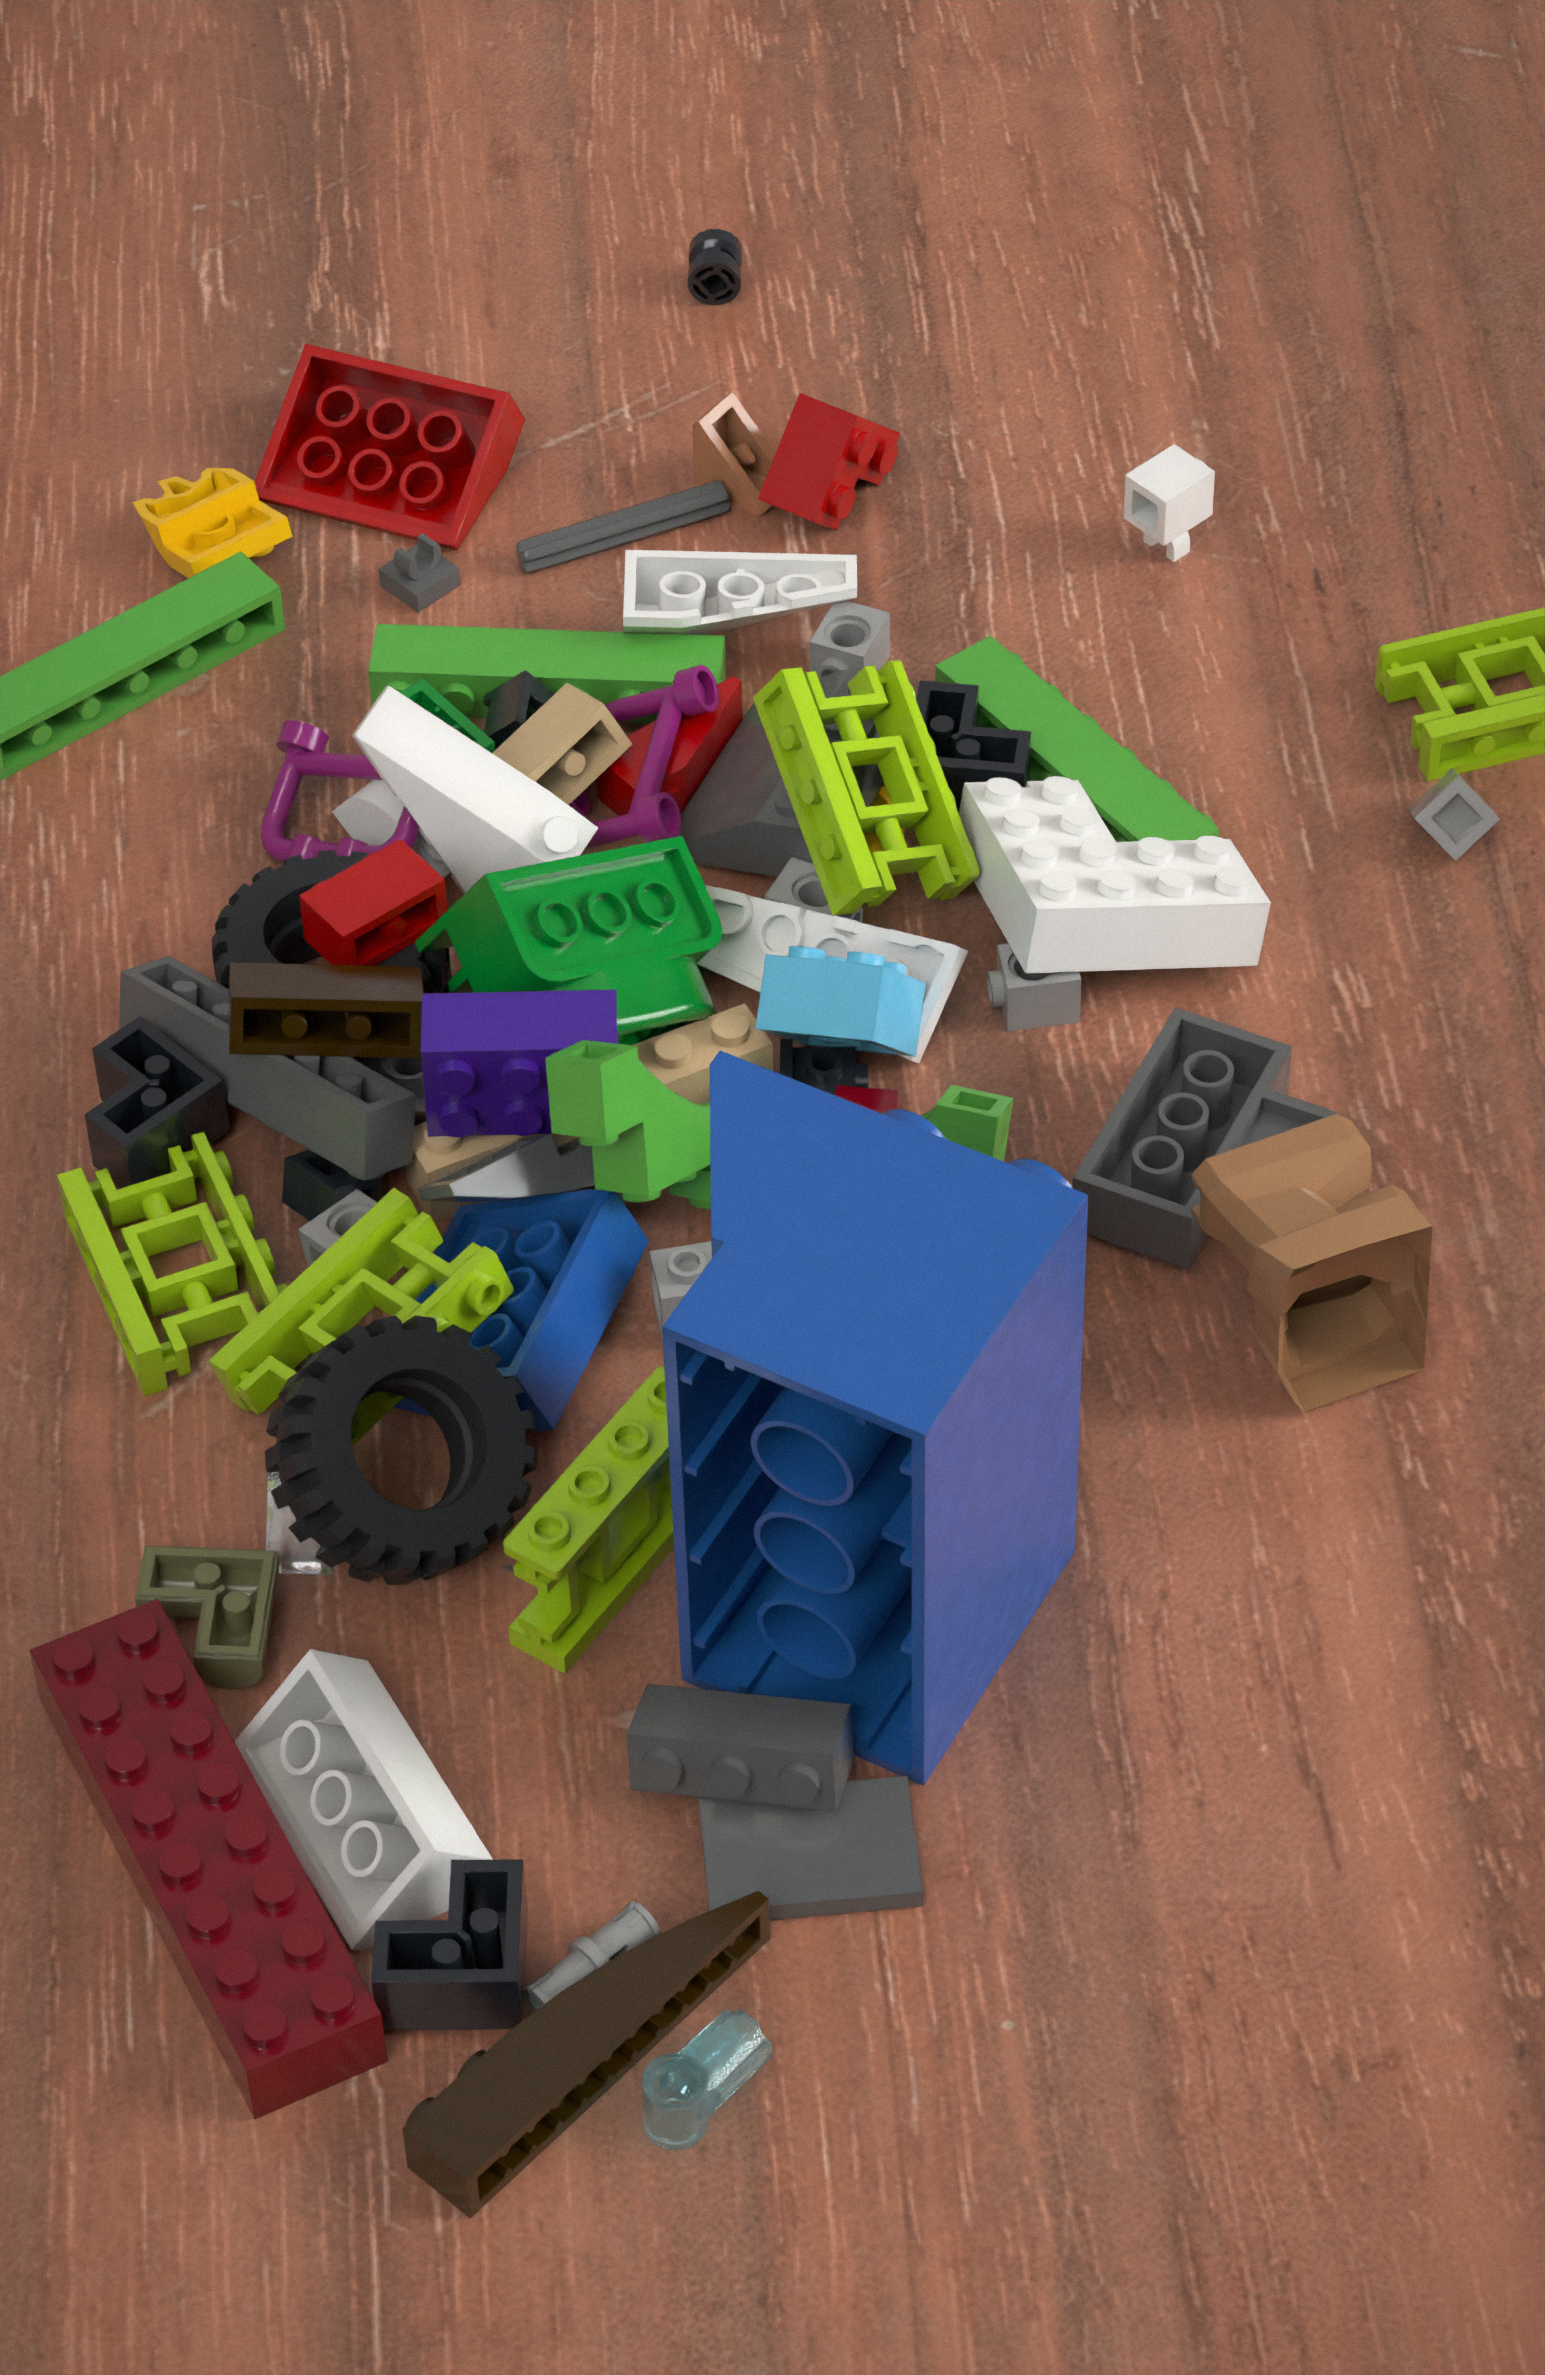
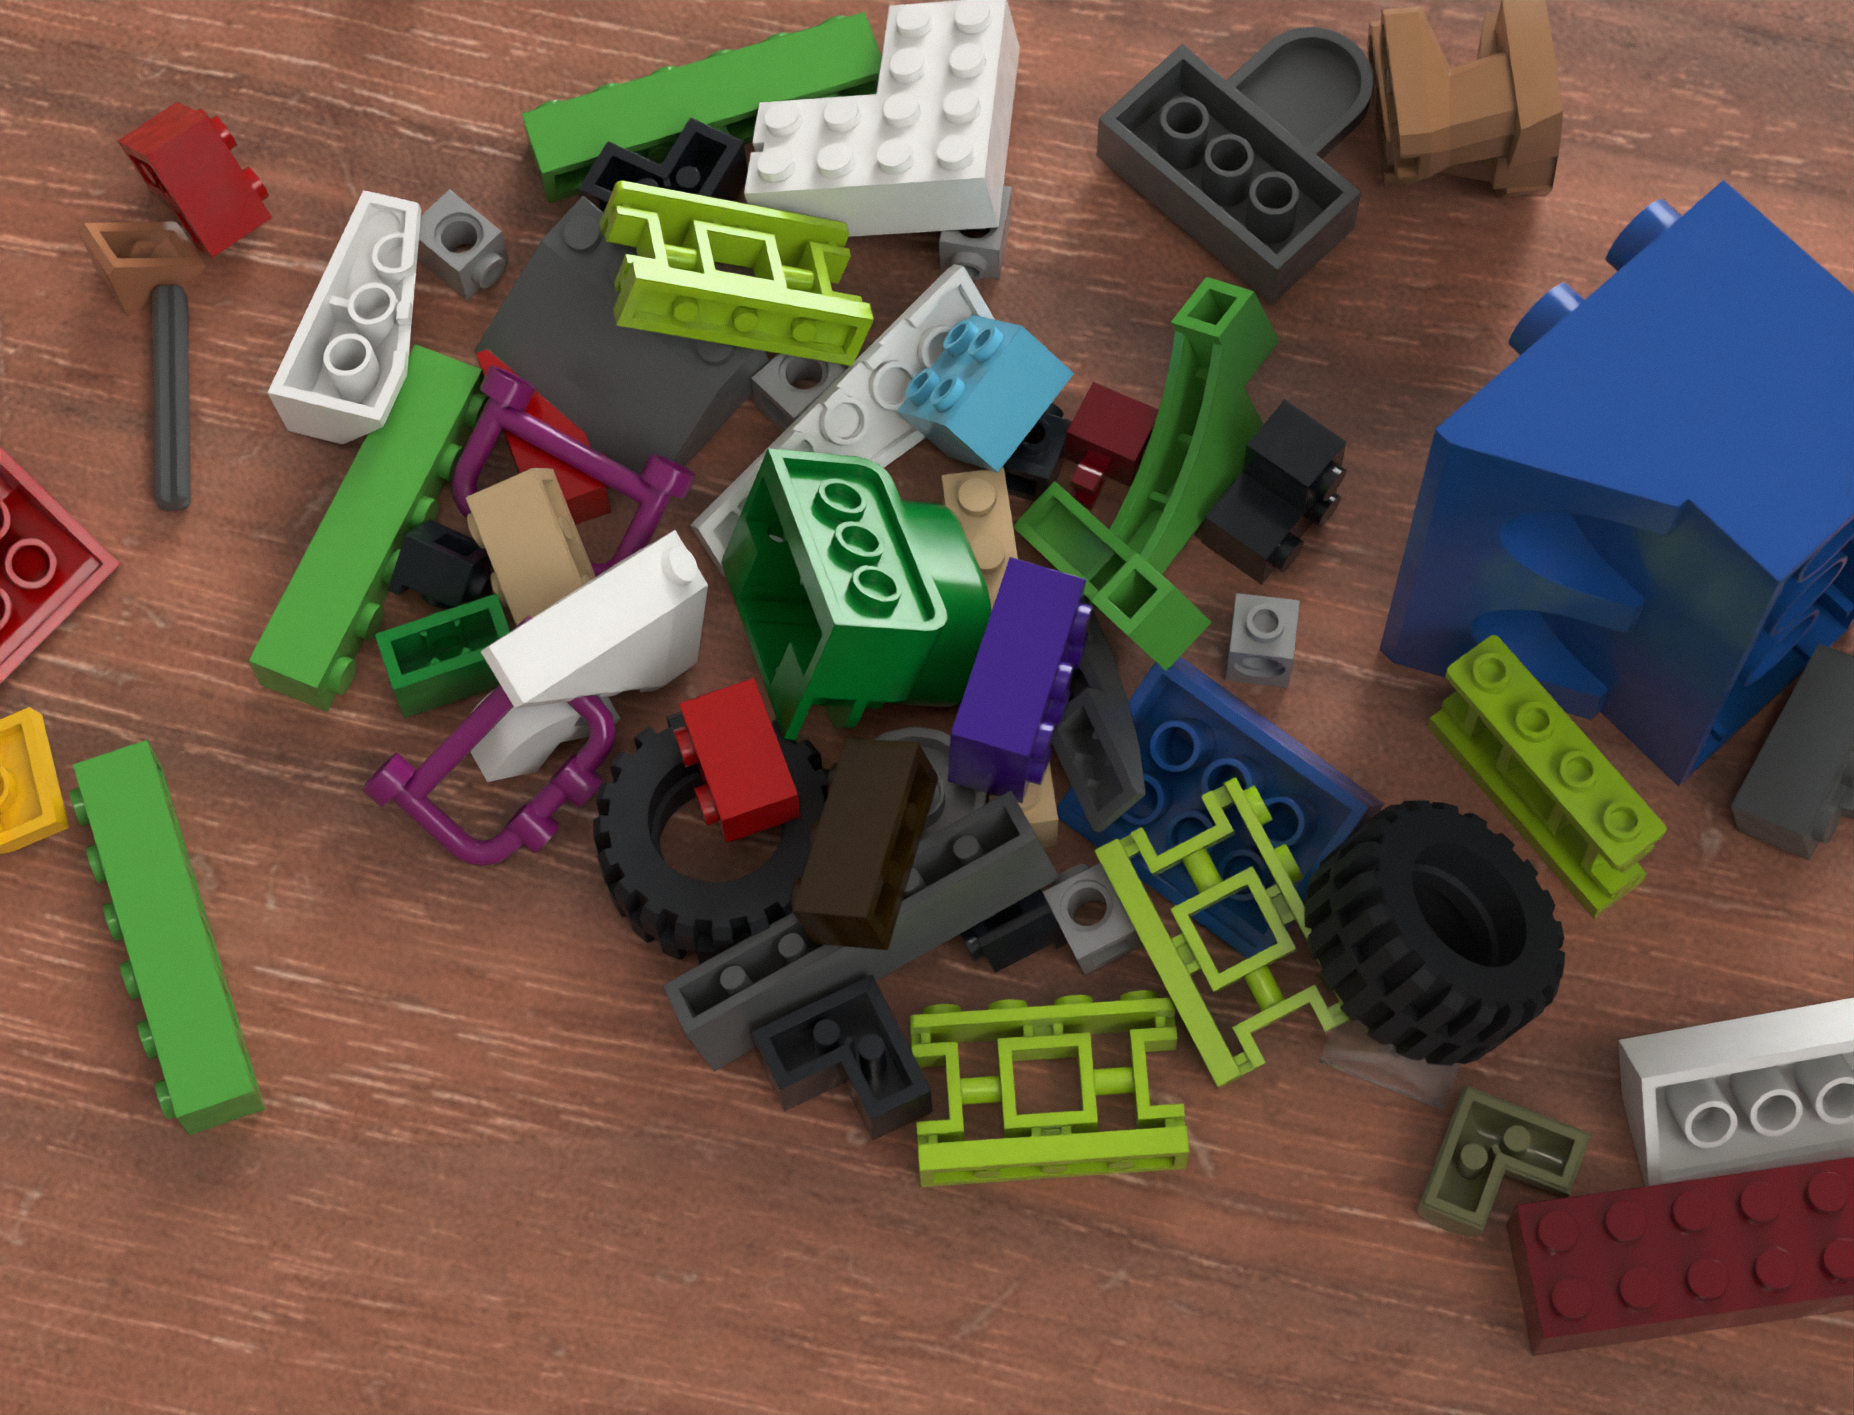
camera: 70 degrees left, 20 degrees up
(419, 574) = (151, 608): dark grey tile -> none

